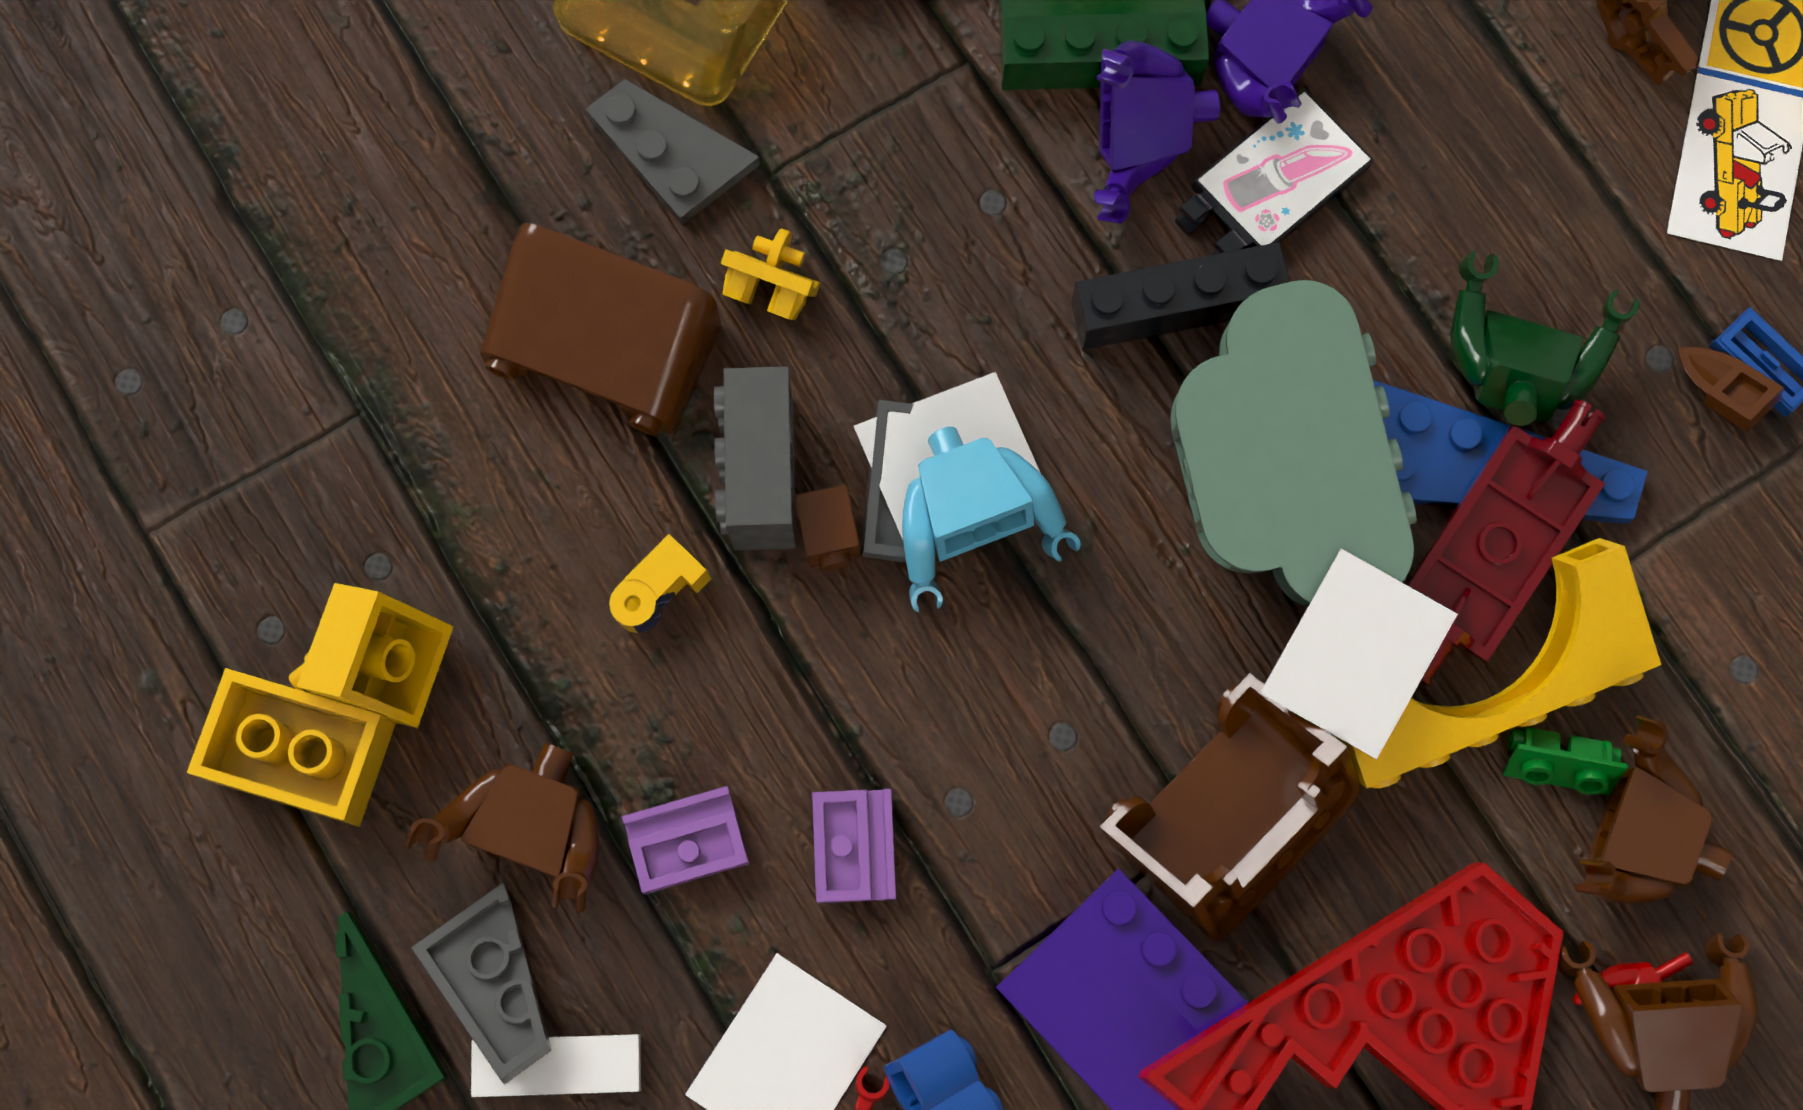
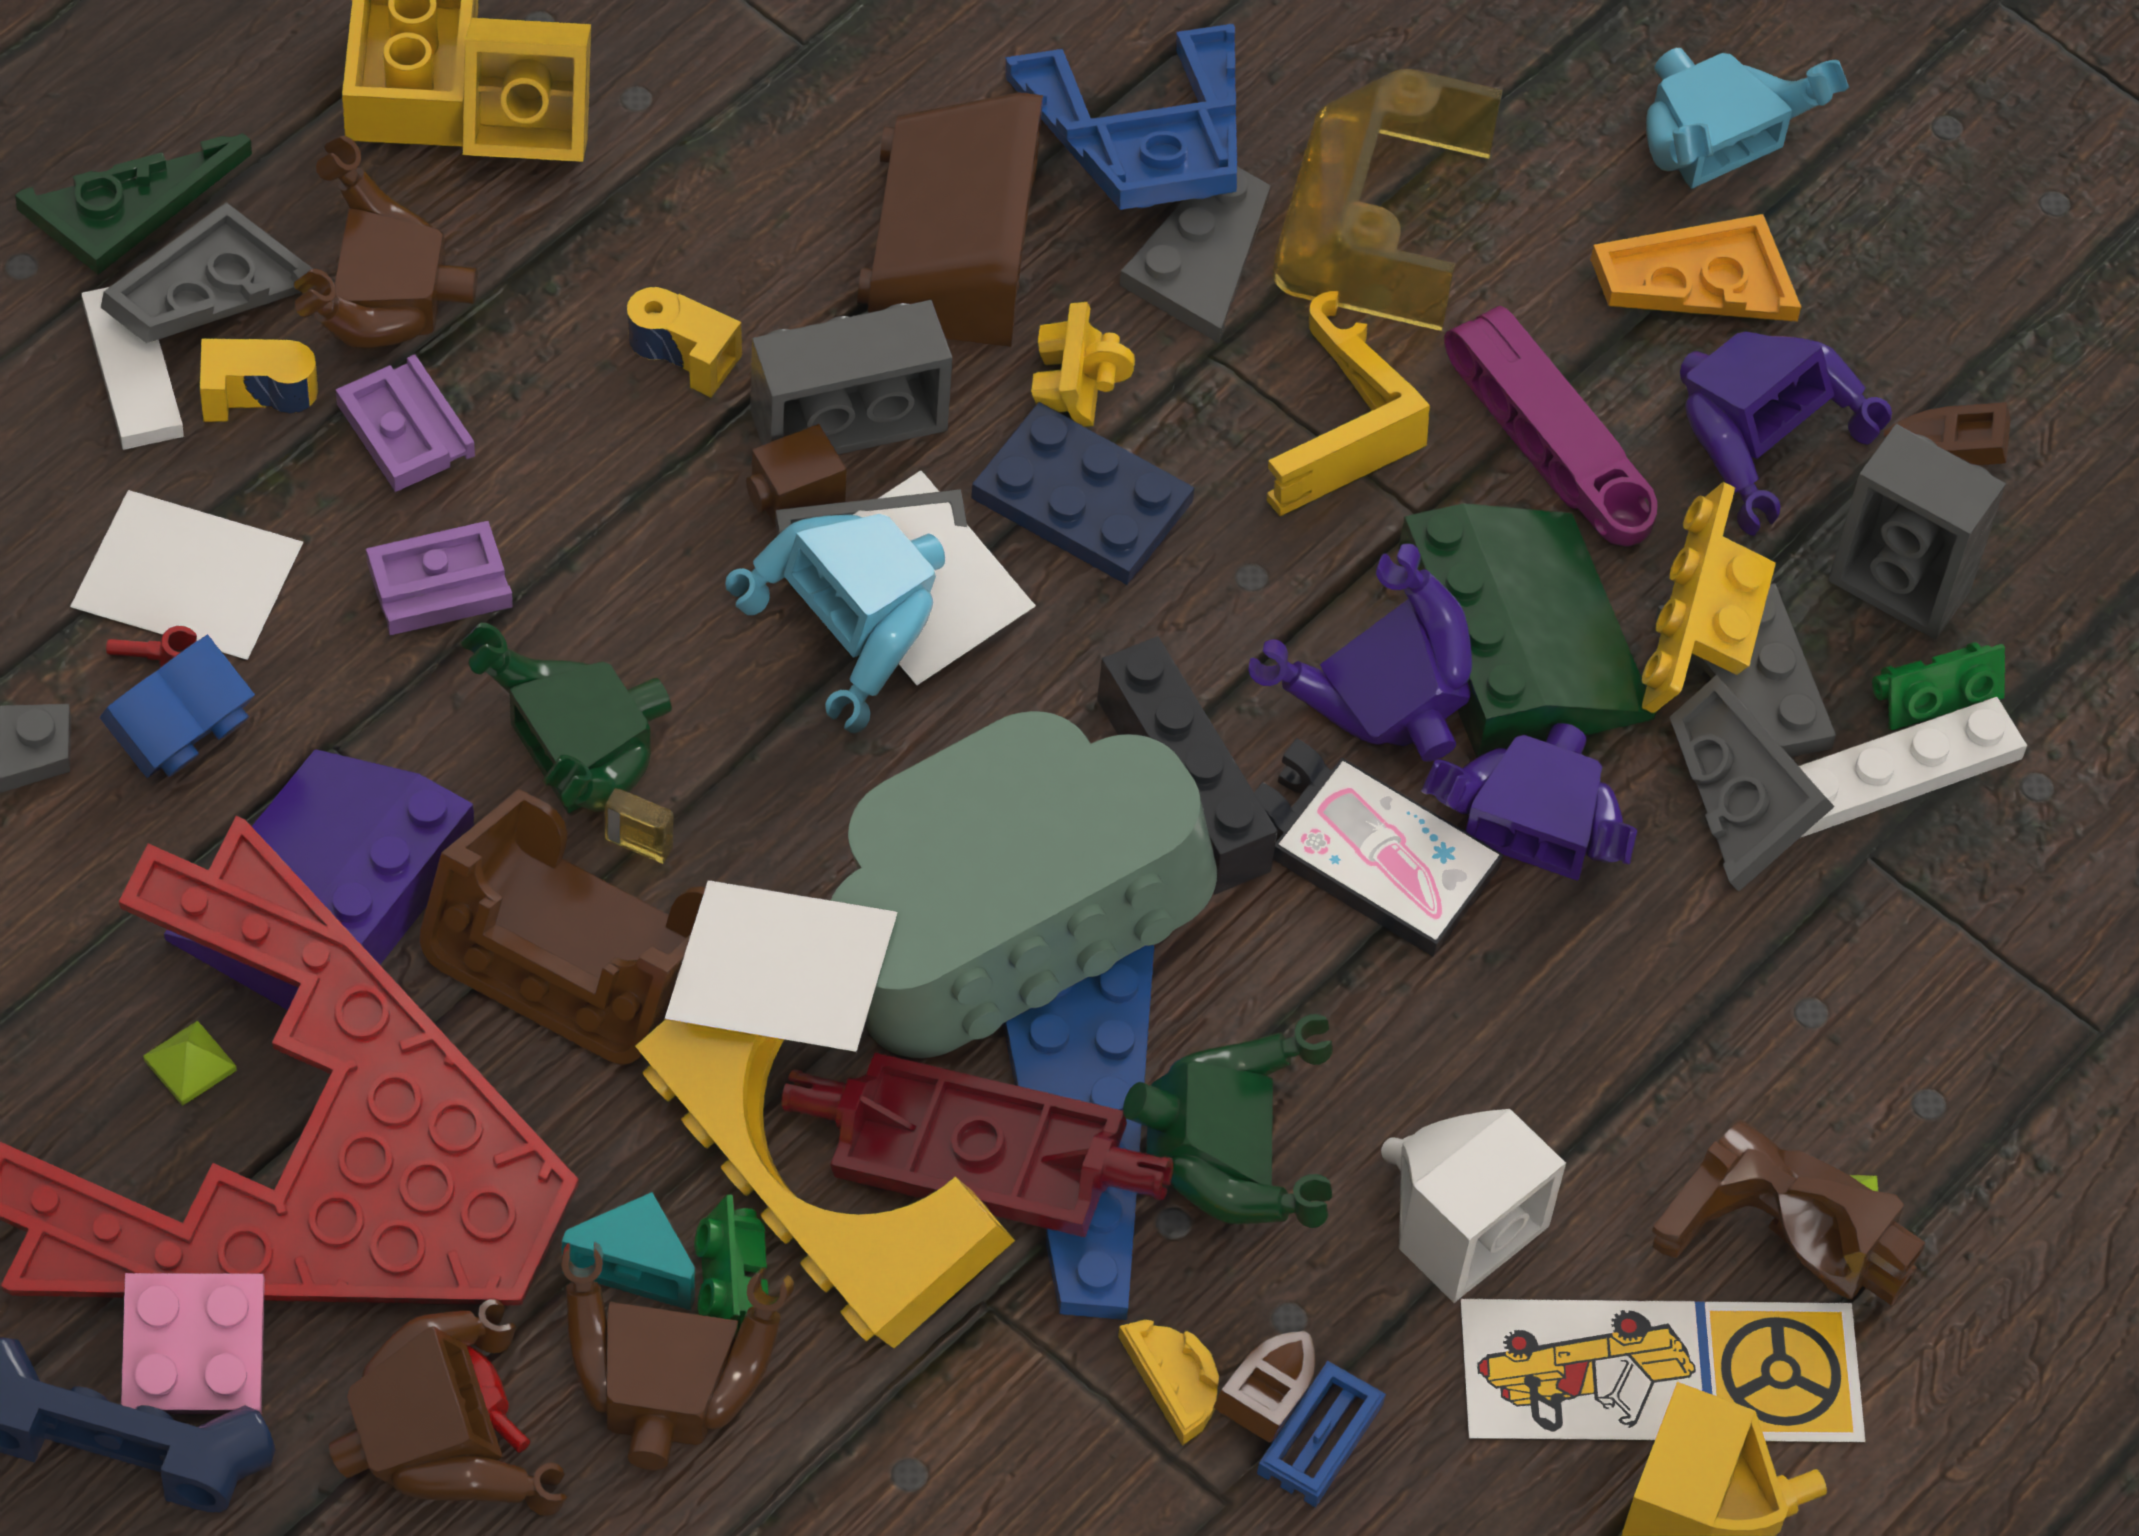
camera: 70 degrees right, 20 degrees down
(580, 160) = (1154, 152): none -> blue wing
(601, 959) = (255, 375): none -> yellow leg
(856, 51) = (1363, 445): none -> yellow hinge
(887, 307) = (1082, 493): none -> dark blue plate
(1041, 762) = (573, 718): none -> dark green torso
(1141, 735) = (639, 825): none -> clear yellow tile
(1536, 834) = (638, 1252): none -> teal slope
(1623, 194) = (1472, 1195): none -> white piece
(1700, 451) = (1176, 1372): none -> yellow tile

